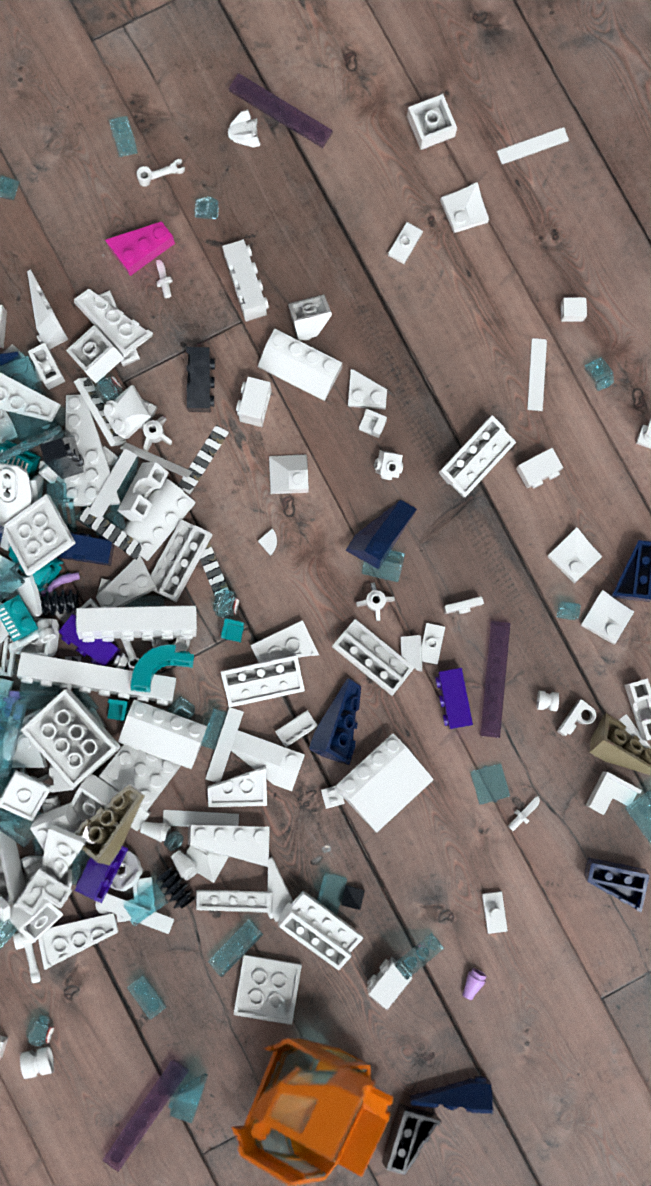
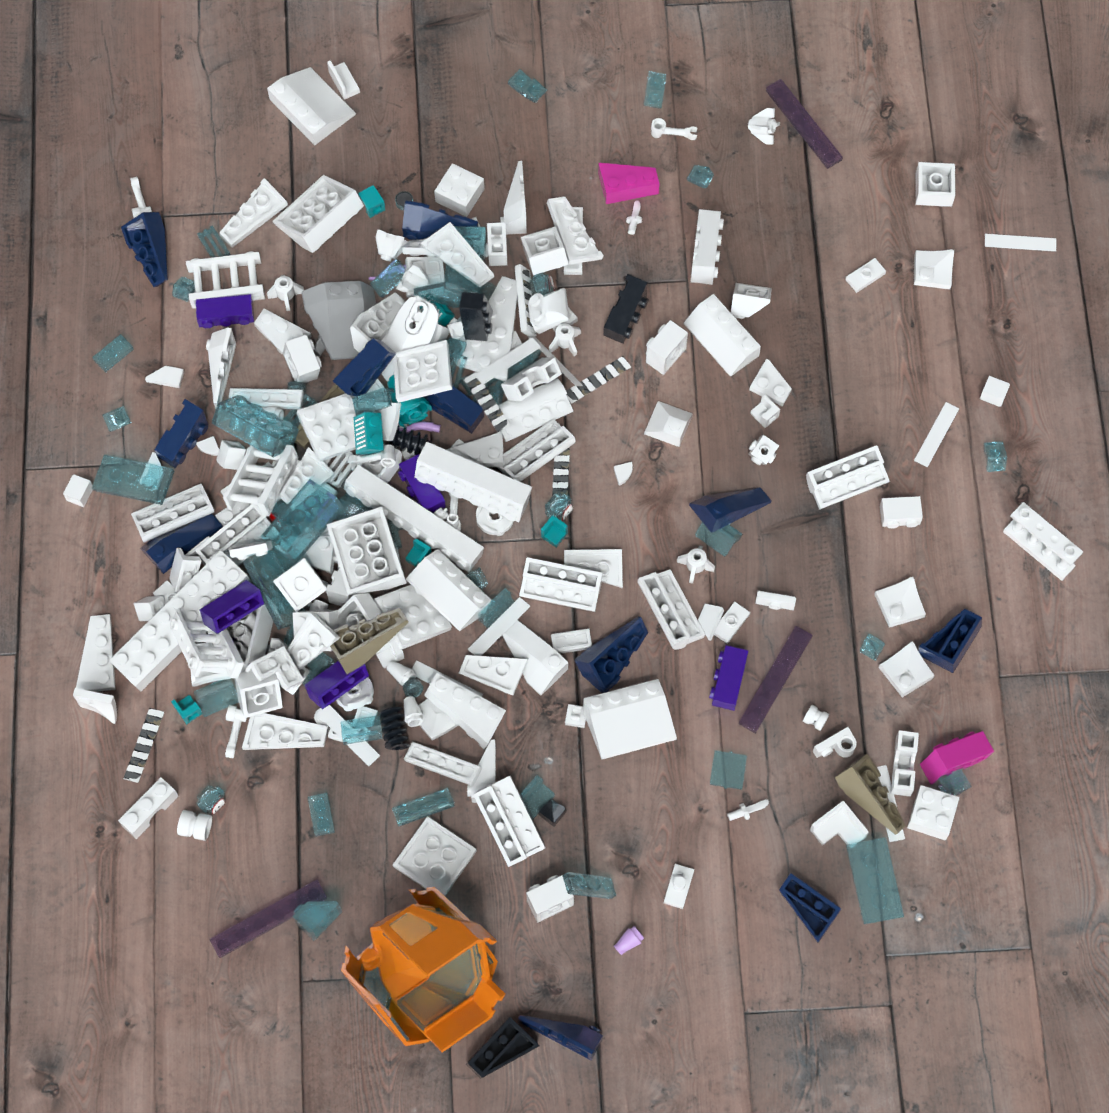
camera: 30 degrees right, 15 degrees down
(155, 660) = (473, 523): teal arch -> none

